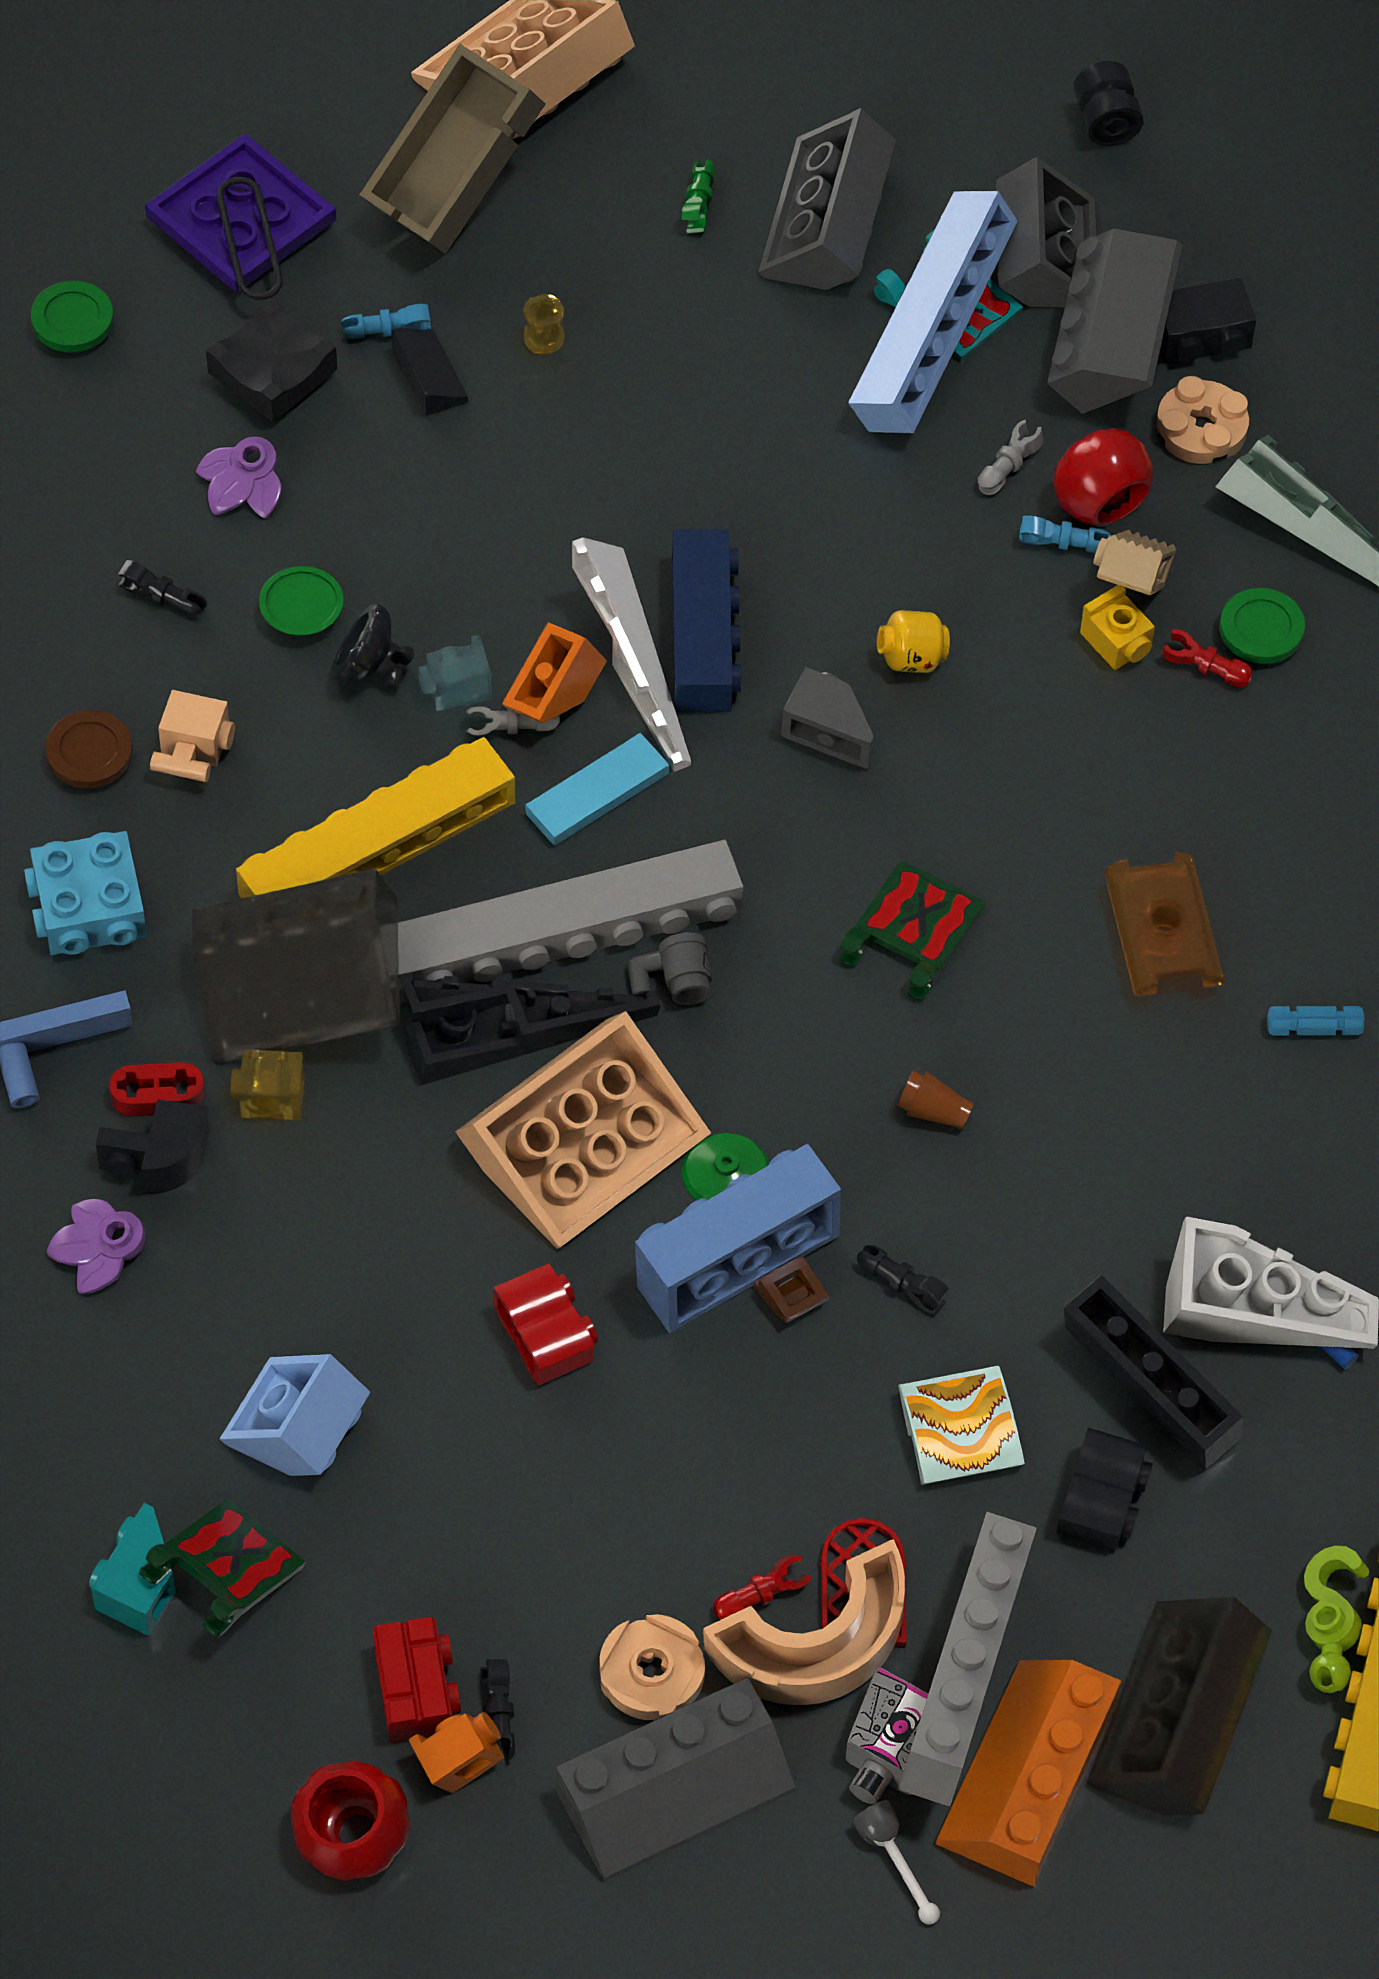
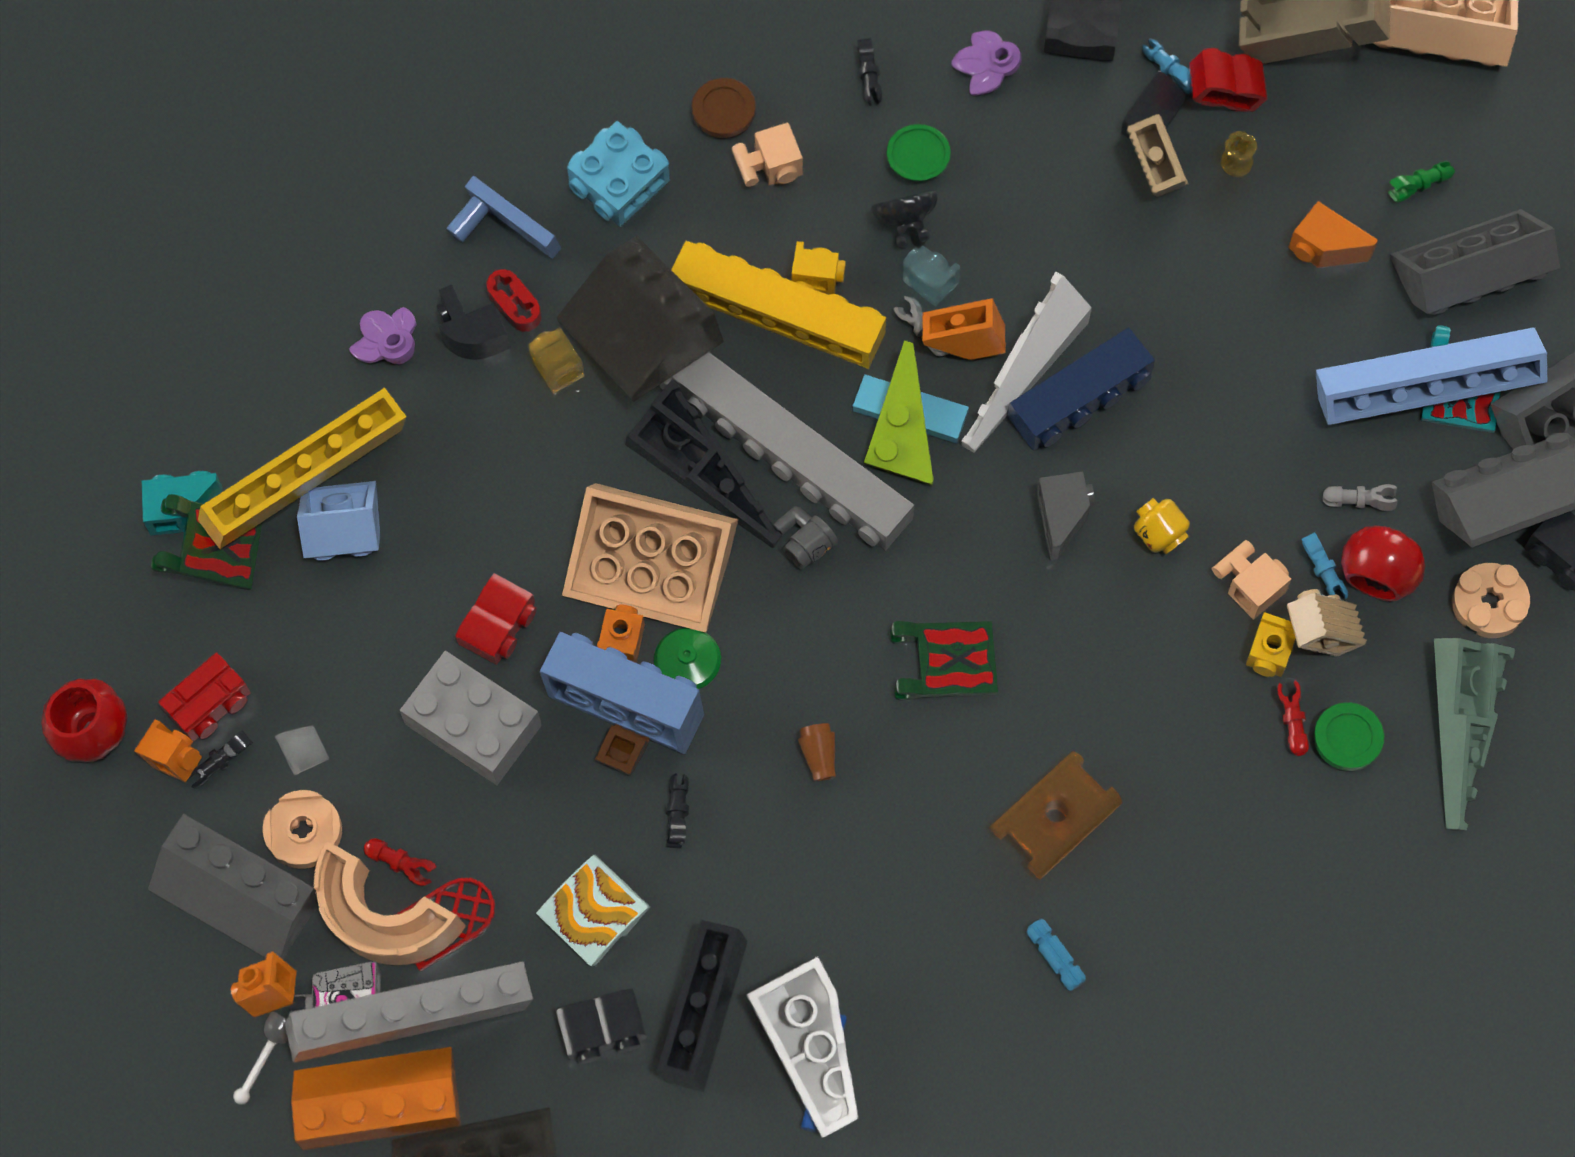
camera: 60 degrees right, 10 degrees up
(215, 1406) = (301, 468): none -> yellow brick
(362, 771) = (818, 268): none -> yellow brick
(454, 278) = (1228, 80): none -> red brick
(494, 388) = (1157, 155): none -> tan brick
(549, 1617) = (302, 748): none -> clear slope
(622, 809) = (900, 434): none -> lime wing
(641, 1194) = (628, 642): none -> orange brick
(647, 1414) = (471, 717): none -> light grey brick
(704, 306) = (1330, 239): none -> orange slope
(823, 1804) = (265, 986): none -> orange brick
(1040, 599) = (1256, 583): none -> light nougat brick

